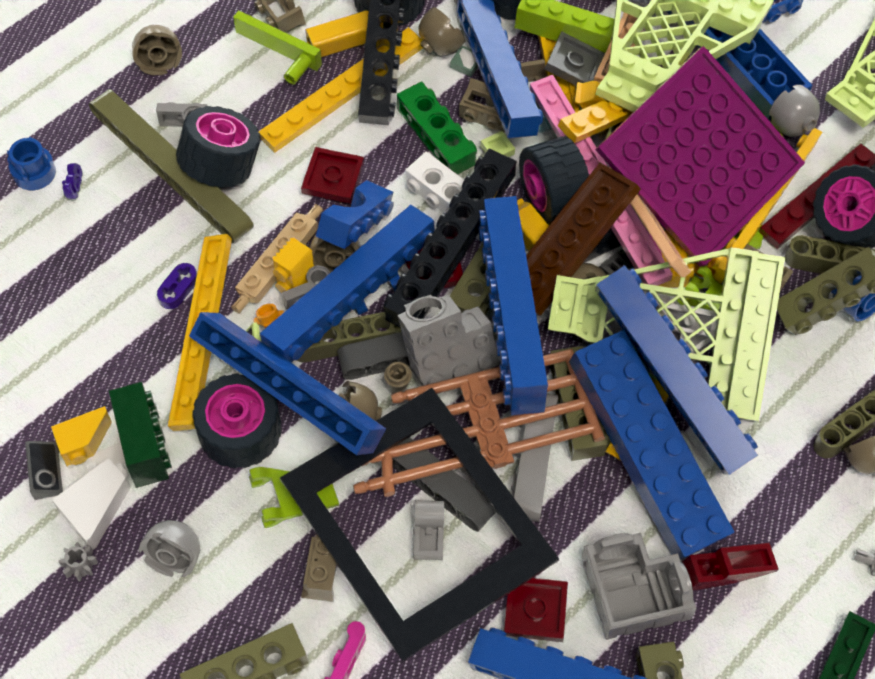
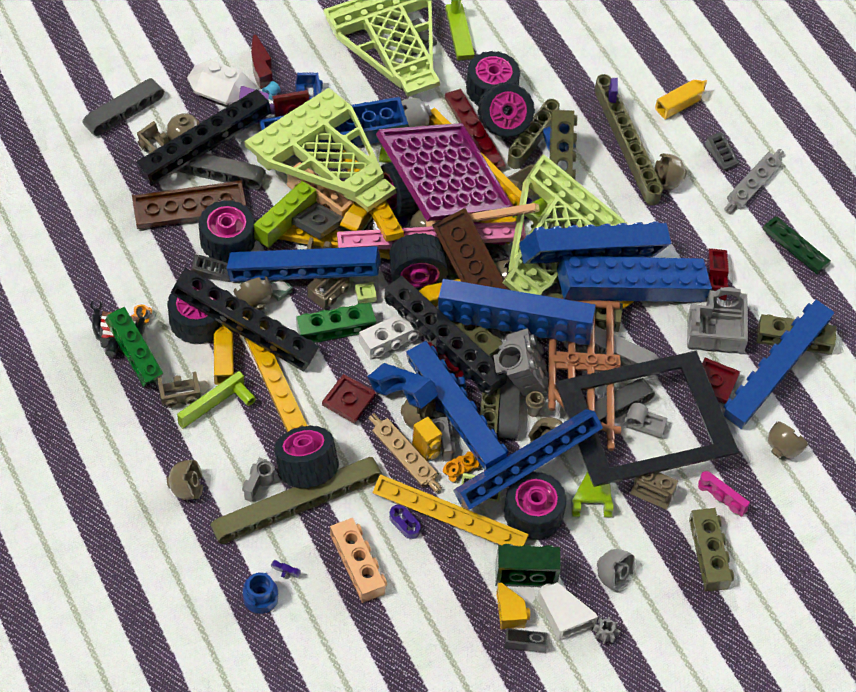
camera: 75 degrees left, 5 degrees down
(109, 236) = (366, 587): none -> light nougat brick

